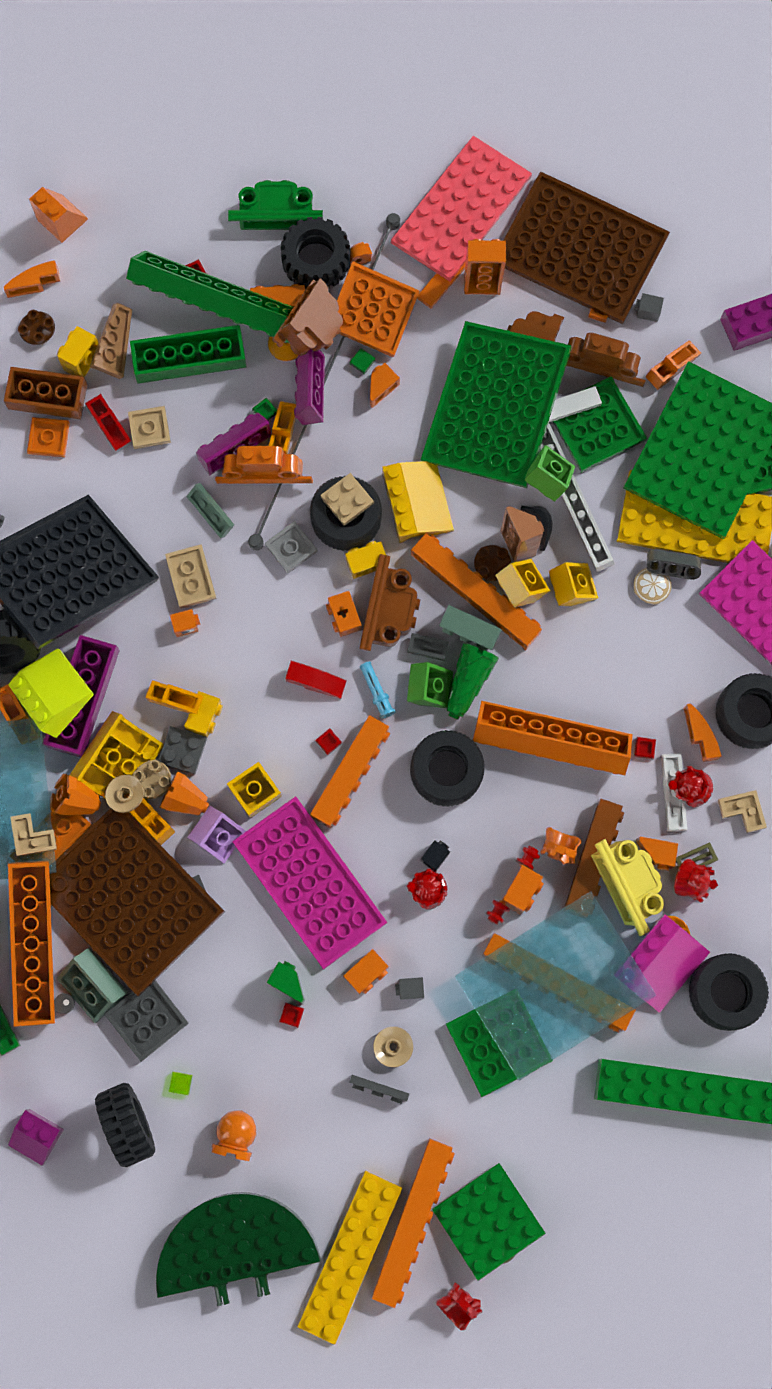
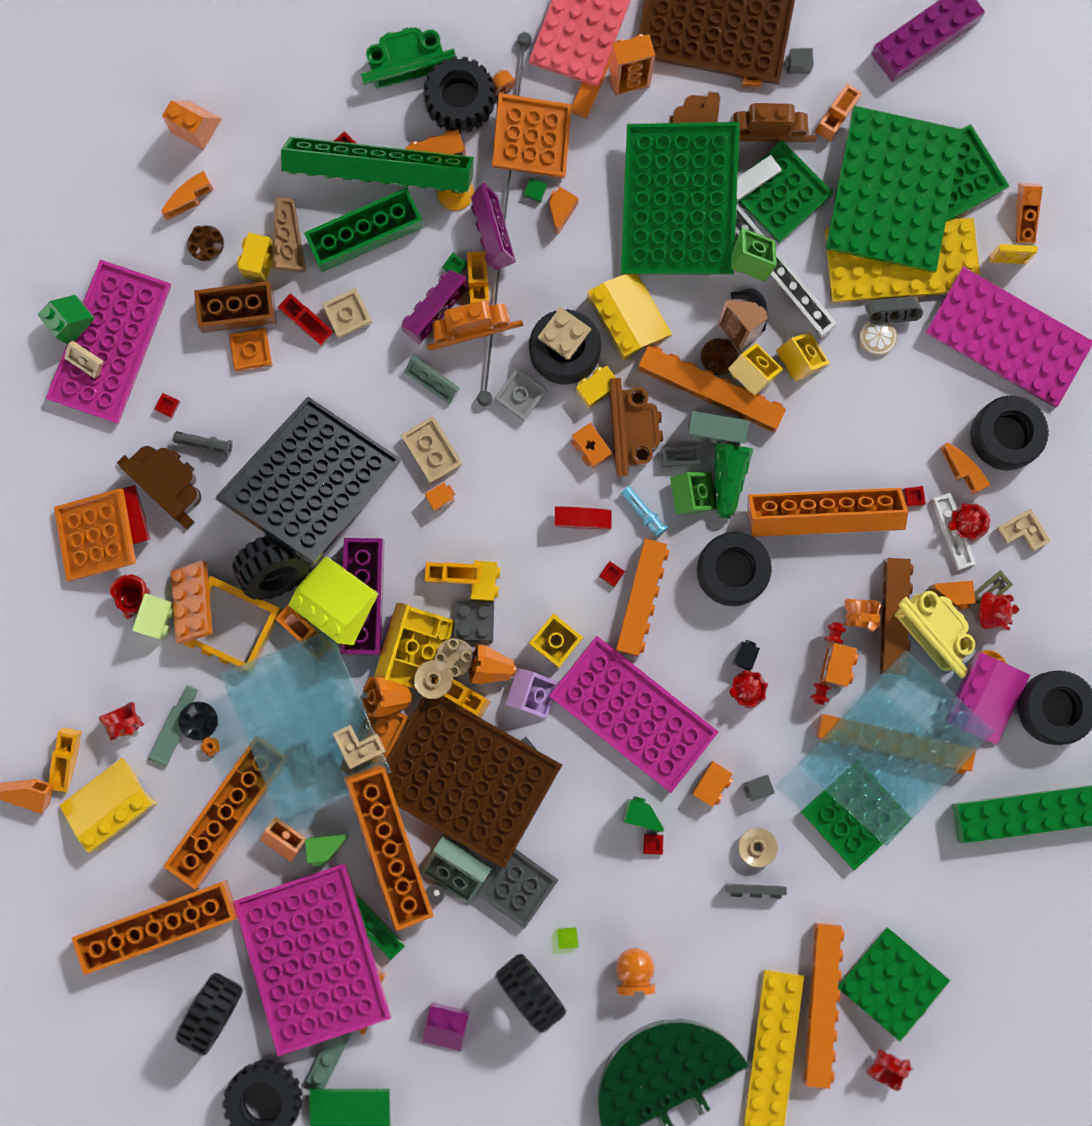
camera: 15 degrees left, 5 degrees up
(312, 321) = (479, 165): brick -> none

